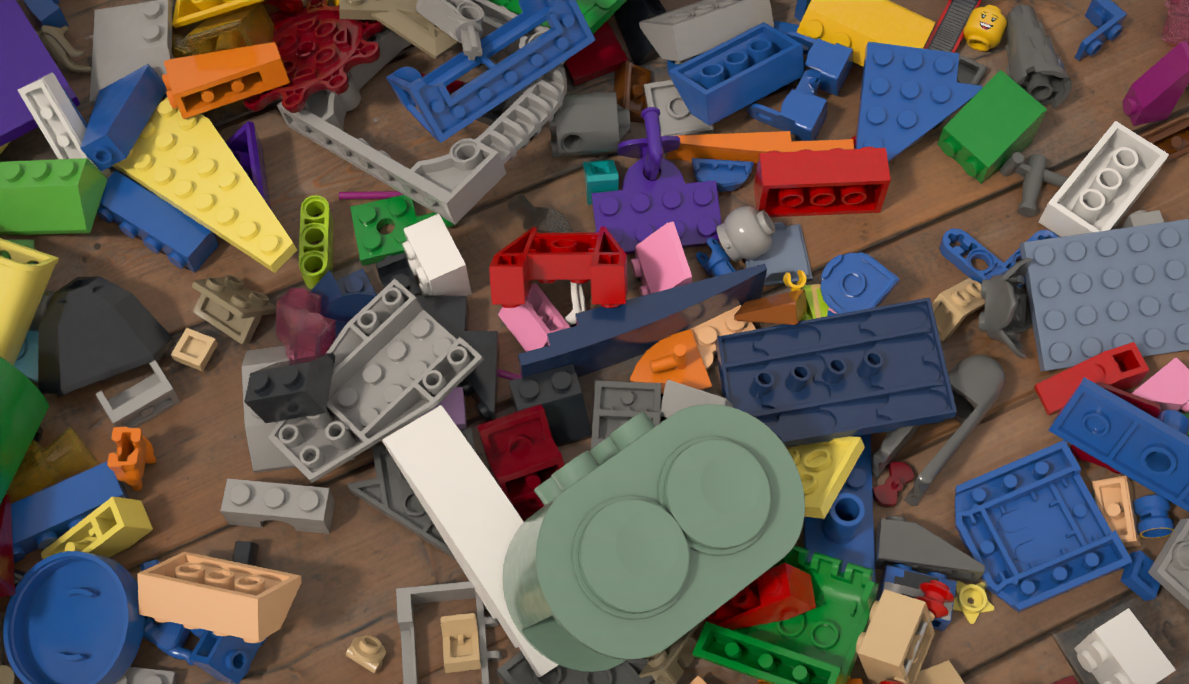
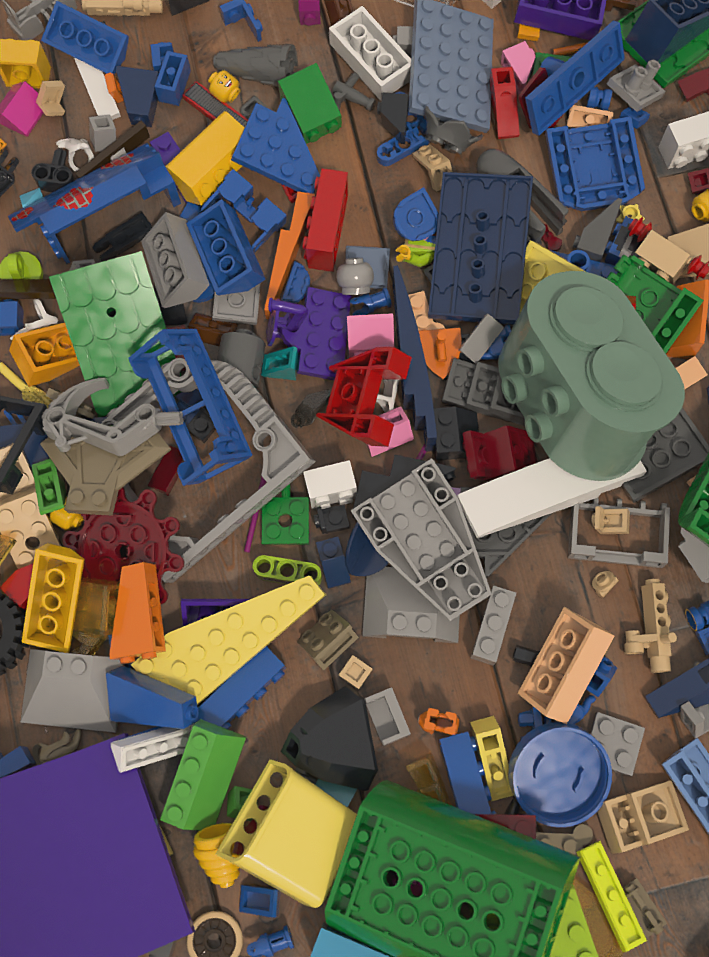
camera: 75 degrees left, 10 degrees up
(291, 388) = (419, 593): black slope -> none
(302, 325) = (372, 586): clear pink brick -> none
(776, 309) = (419, 272): dark orange slope -> none
(1012, 228) = (394, 114): none -> black slope

